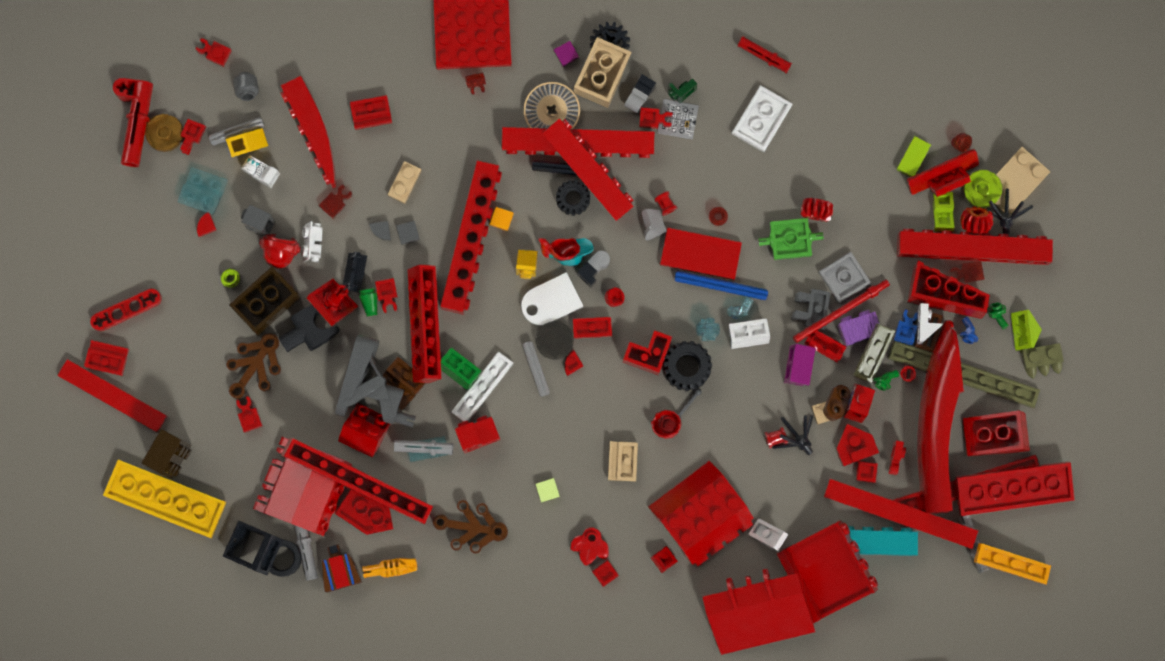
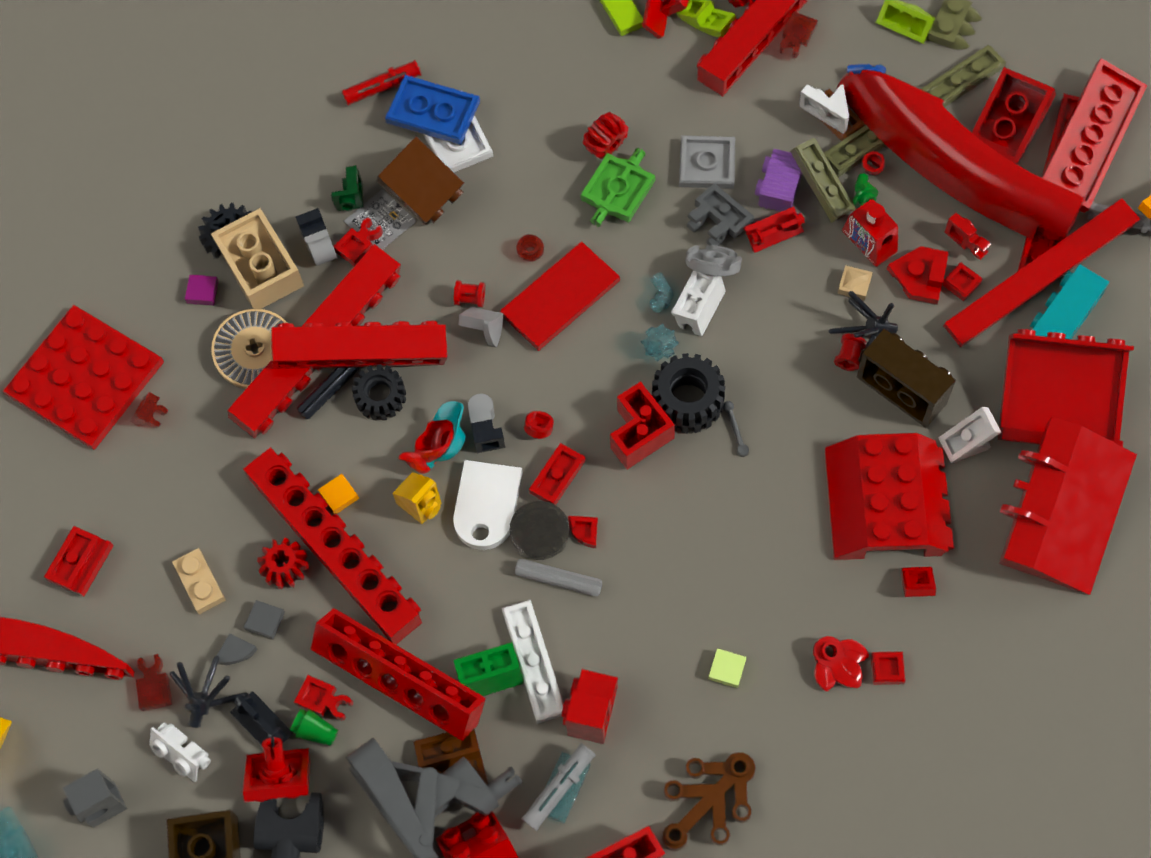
camera: 45 degrees left, 15 degrees down
(260, 171) = (34, 753): white leg -> none
(279, 251) = (154, 798): red helmet -> none
(342, 234) = (201, 702): none -> black plant
(450, 220) = (288, 572): none -> red gear
(623, 461) = (755, 549): tan plate -> none
(666, 424) = (744, 465): red hair -> none
(713, 126) = (421, 181): none -> reddish brown slope
(721, 285) = (615, 297): blue axle -> none
(766, 98) = (432, 109): none -> blue tile
(777, 478) = (905, 377): none -> dark brown brick
(778, 325) = (713, 260): none -> light grey tile
(799, 365) = (778, 271): magenta hinge -> none
(838, 401) = (854, 258): reddish brown plate -> none
(871, 292) = (746, 144): red bar -> none
(906, 330) = (823, 132): blue plate -> none
(946, 293) = (806, 62): red wedge -> none
(996, 311) = (863, 33): green plate -> none

